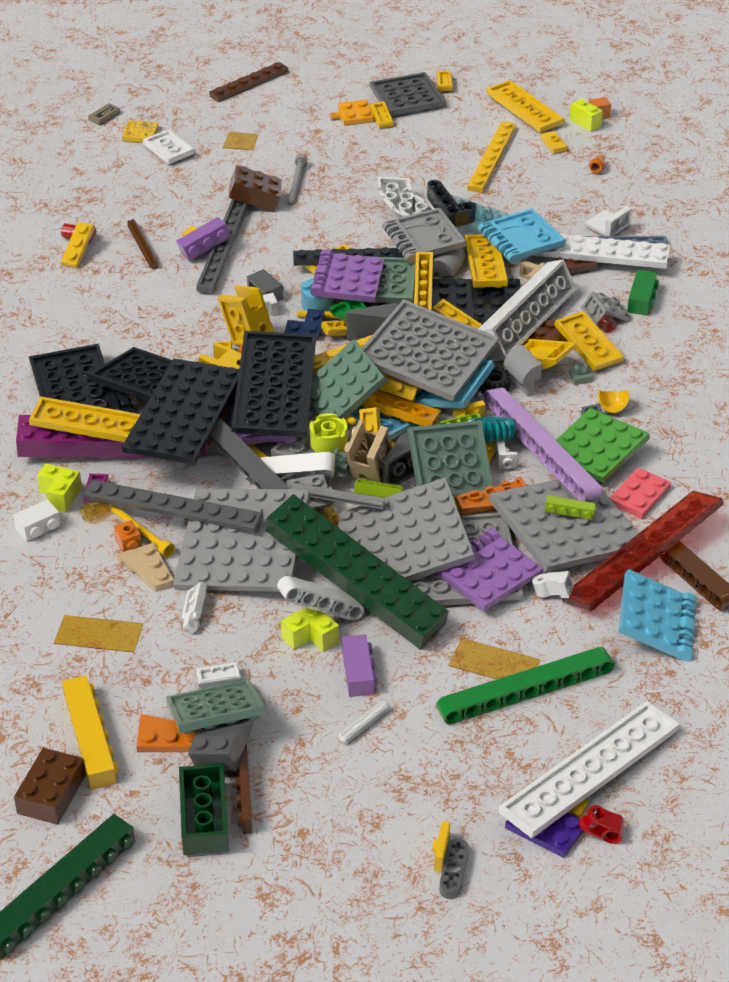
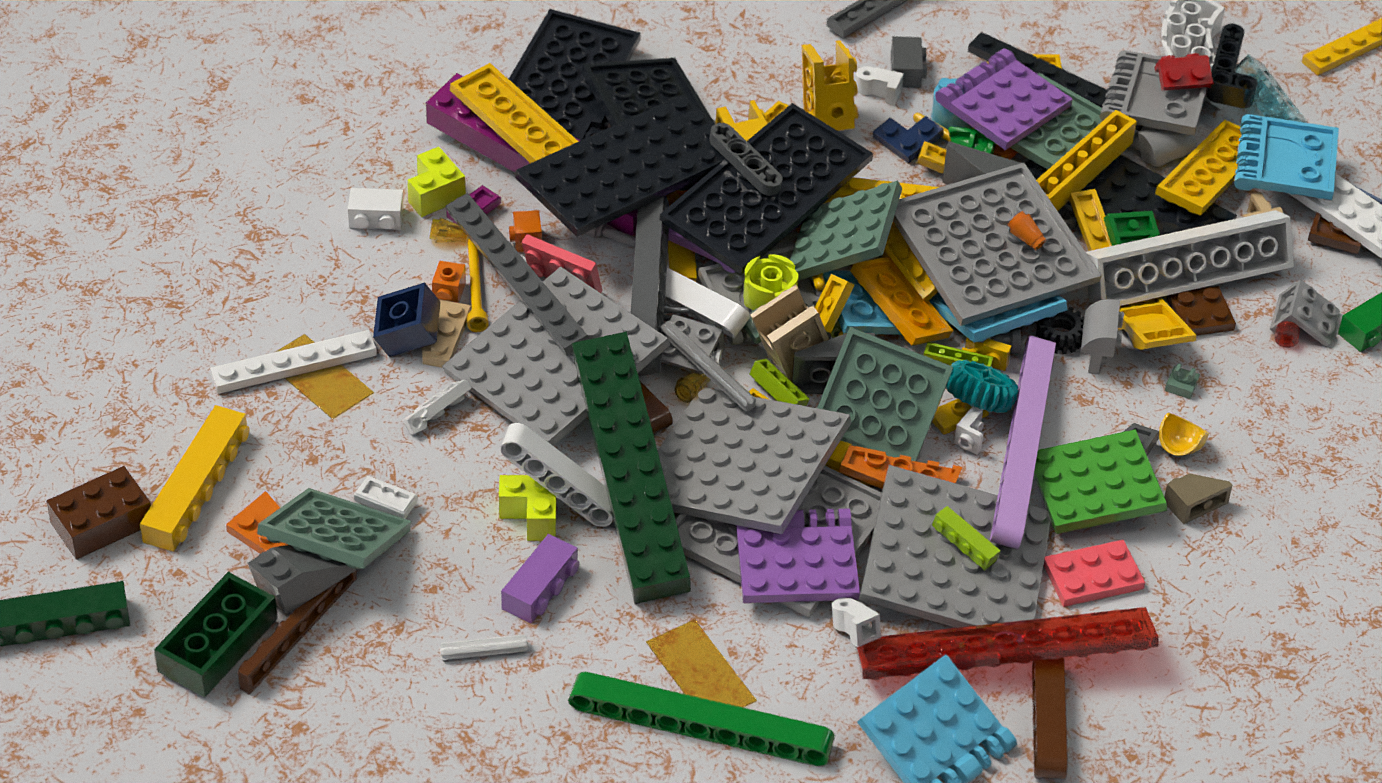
camera: 35 degrees right, 5 degrees up
(76, 634) = (293, 361): none -> white plate
(129, 568) = (407, 319): none -> dark blue brick
(144, 480) = (525, 223): none -> orange brick
(187, 486) = (547, 258): none -> coral plate
(232, 368) = (741, 161): none -> dark grey beam
(432, 215) = (1184, 72): none -> red bracket
(444, 332) = (1026, 230): none -> orange cone
(481, 309) = (1130, 226): none -> green wing
(590, 340) = (1233, 343): yellow plate -> none
(652, 423) = (1196, 496): none -> dark tan slope

